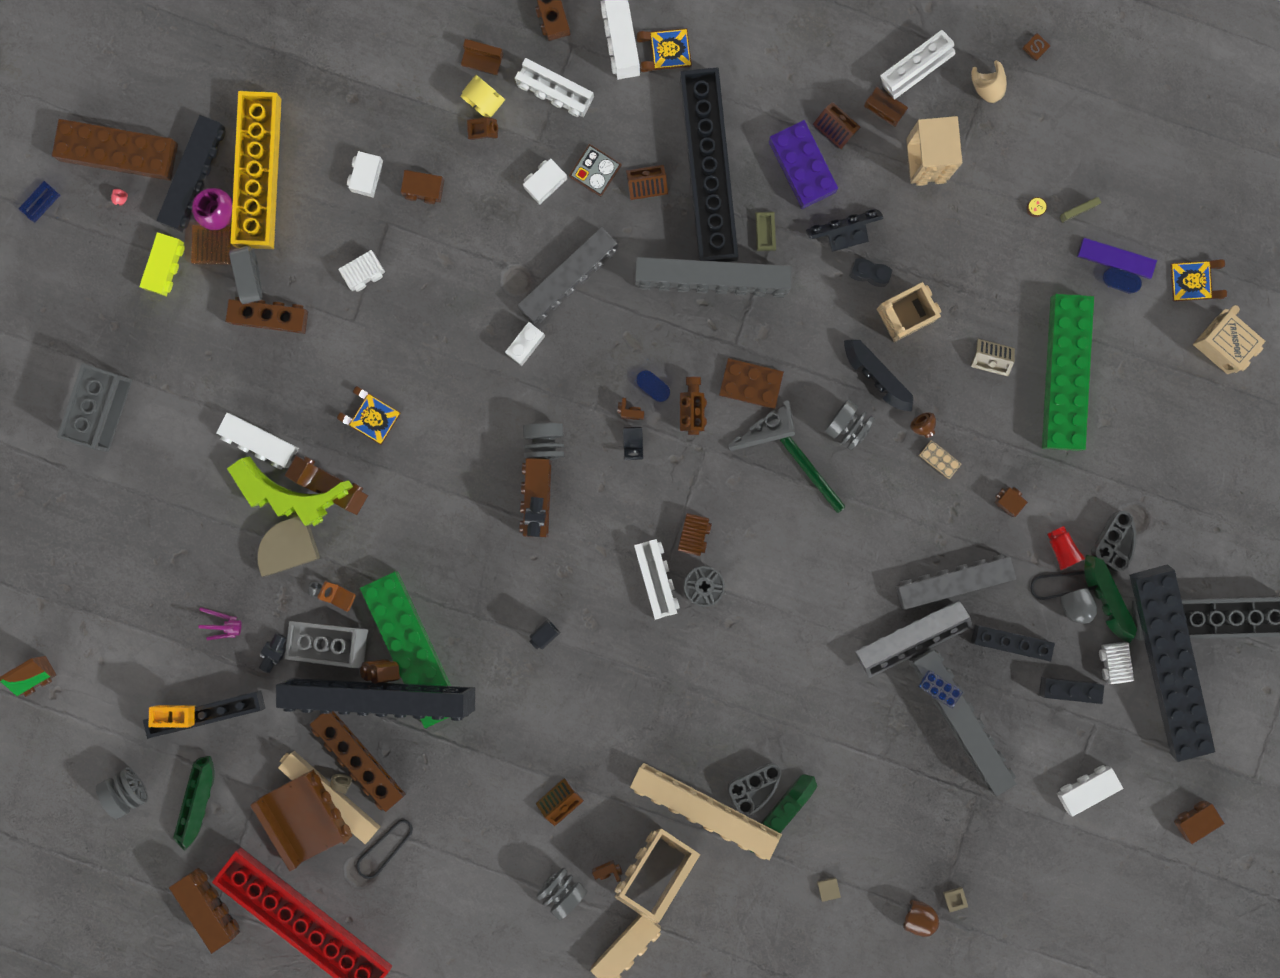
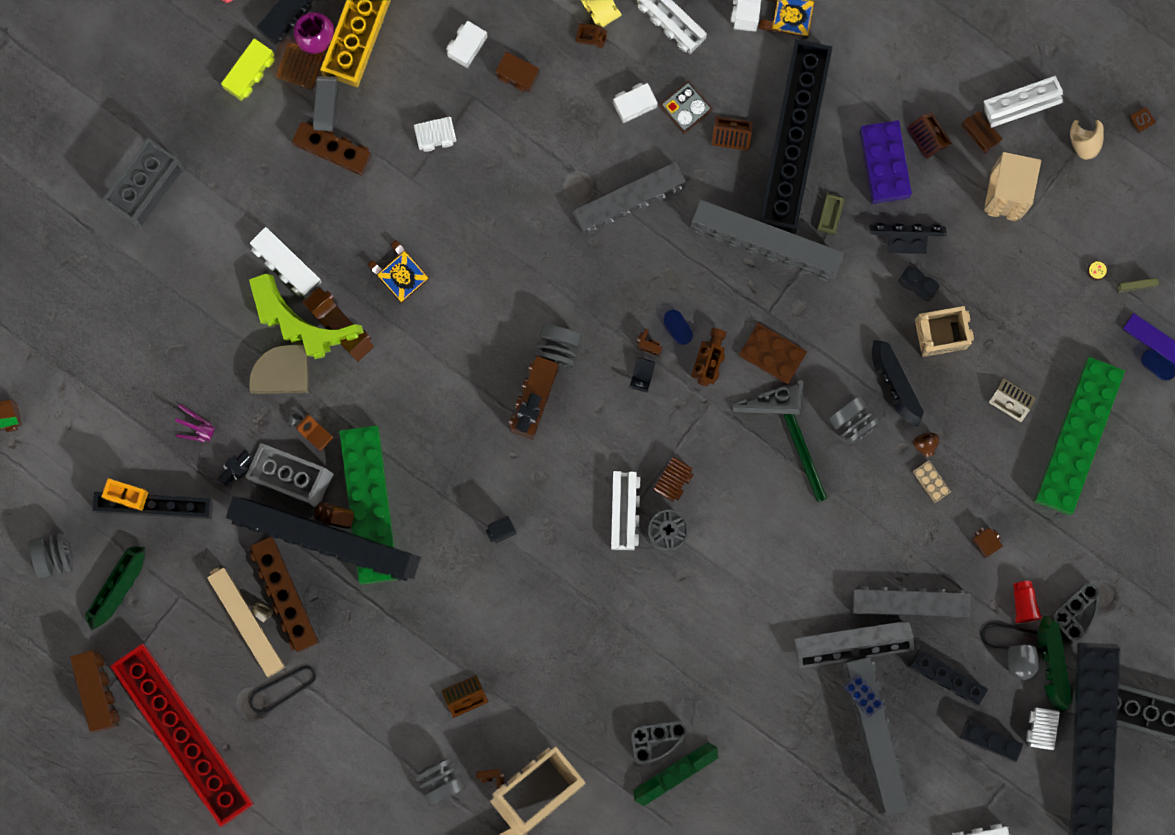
camera: 10 degrees right, 5 degrees down
(301, 819) = (214, 634): reddish brown panel -> none
(525, 343) = (568, 249): white brick -> none
(705, 811) = (603, 746): tan brick -> none

